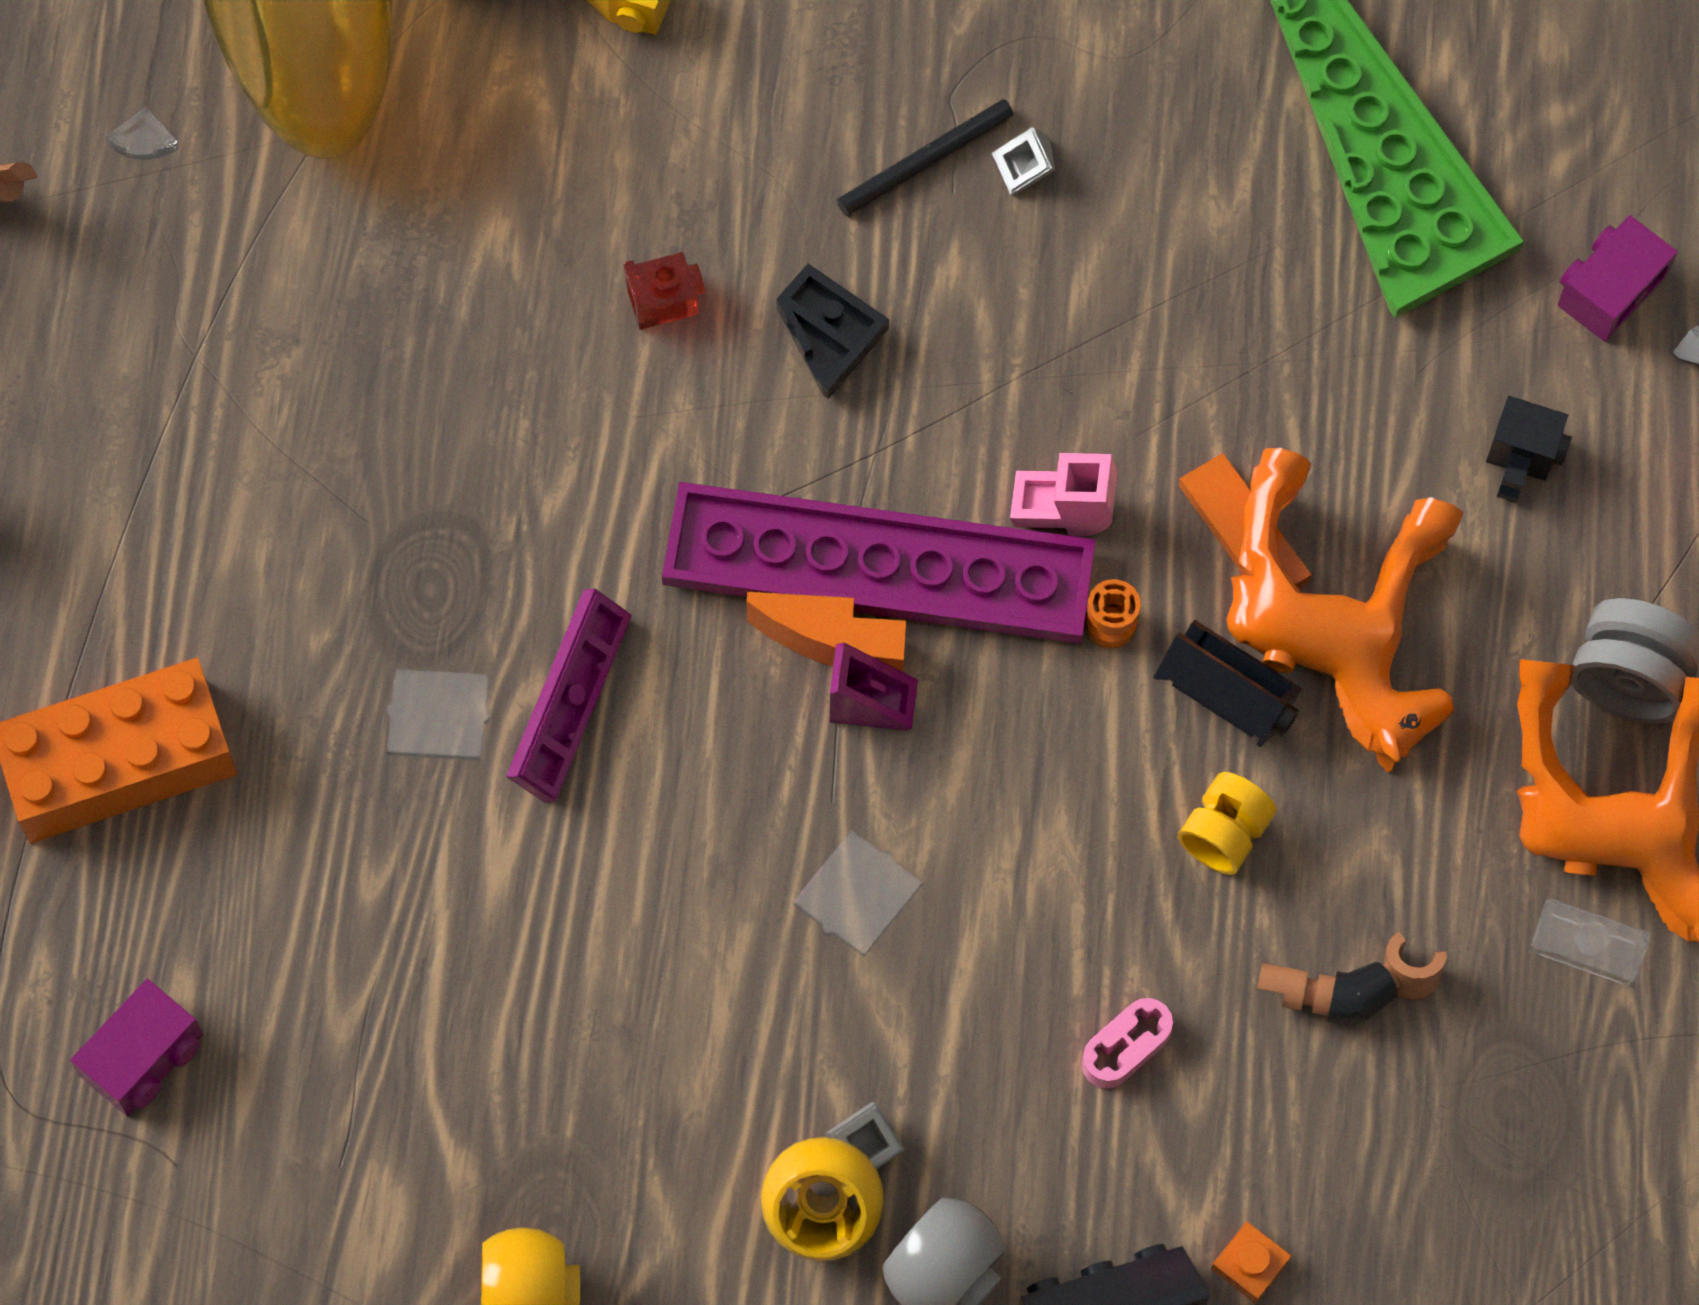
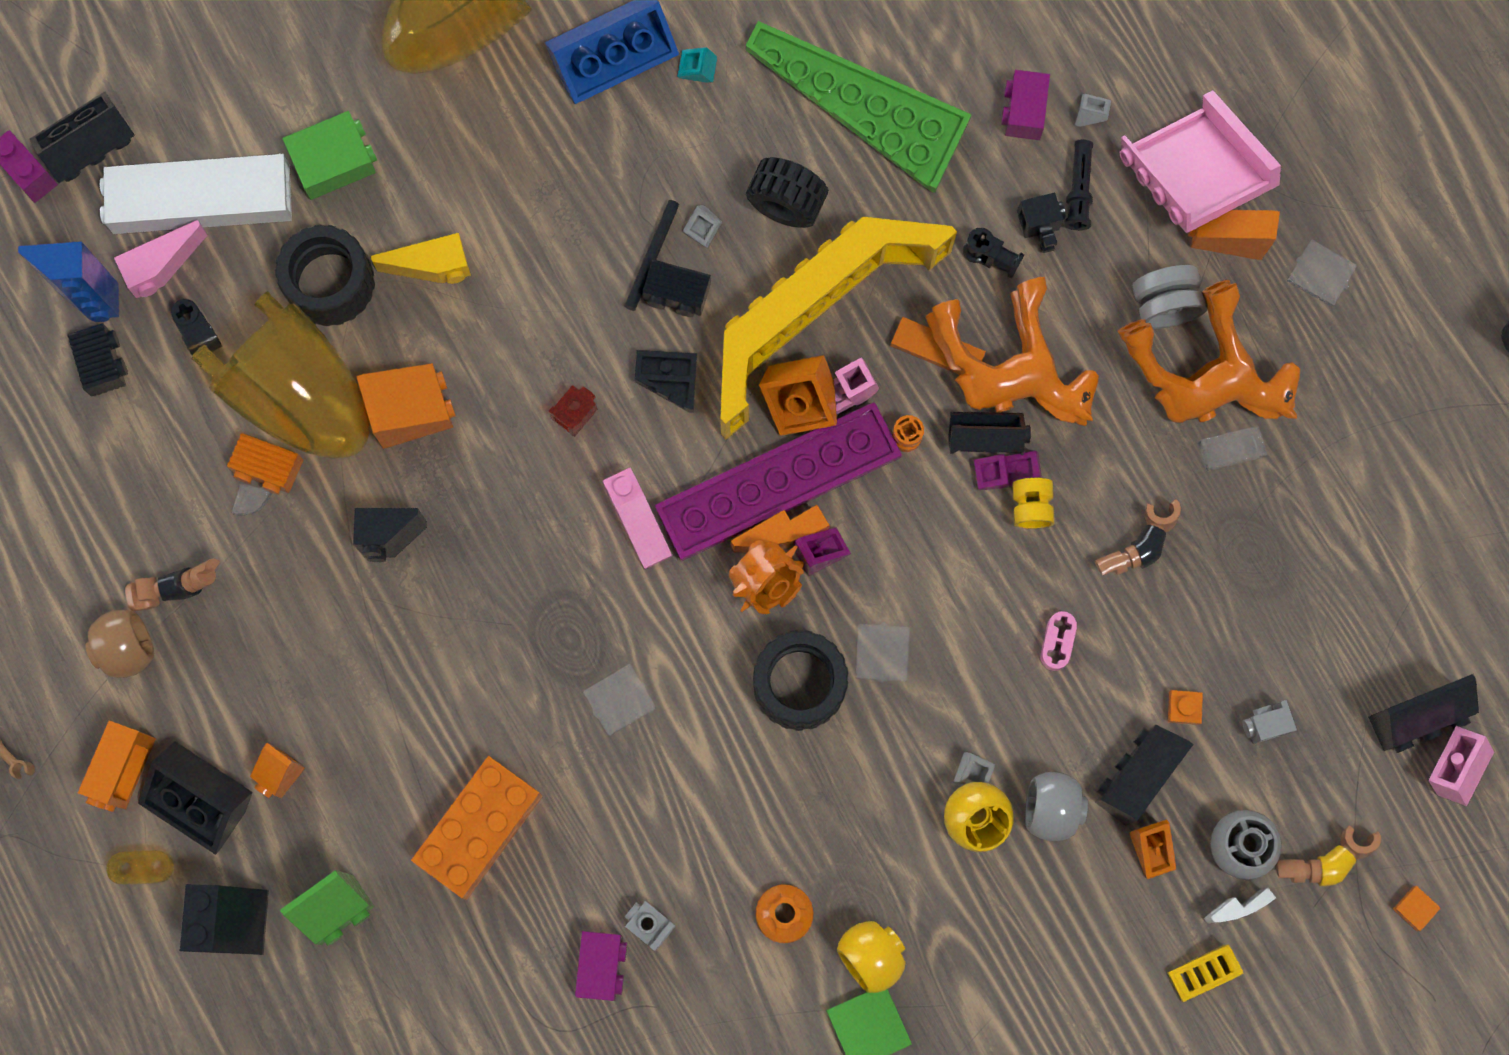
camera: 35 degrees left, 10 degrees up
(196, 101) = (265, 464): none -> orange brick
(249, 1058) = (654, 936): none -> light grey brick
(286, 280) = (386, 531): none -> black slope
(436, 136) = (406, 403): none -> orange slope
(455, 1183) = (768, 922): none -> orange piece
(569, 695) = (678, 648): magenta plate -> none
(642, 483) = (637, 518): none -> bright pink slope
(705, 783) = (808, 643): none -> black tyre
(761, 671) = (766, 577): none -> orange brick
(925, 218) = (676, 288): none -> black brick
(992, 461) = (800, 395): none -> orange slope
(1103, 336) = (815, 289): none -> yellow slope
(1171, 178) = (787, 192): none -> black tyre
(1208, 748) = (1003, 470): none -> magenta slope
(1417, 444) = (991, 252): none -> black connector
(1605, 451) = (1080, 198): none -> black pin

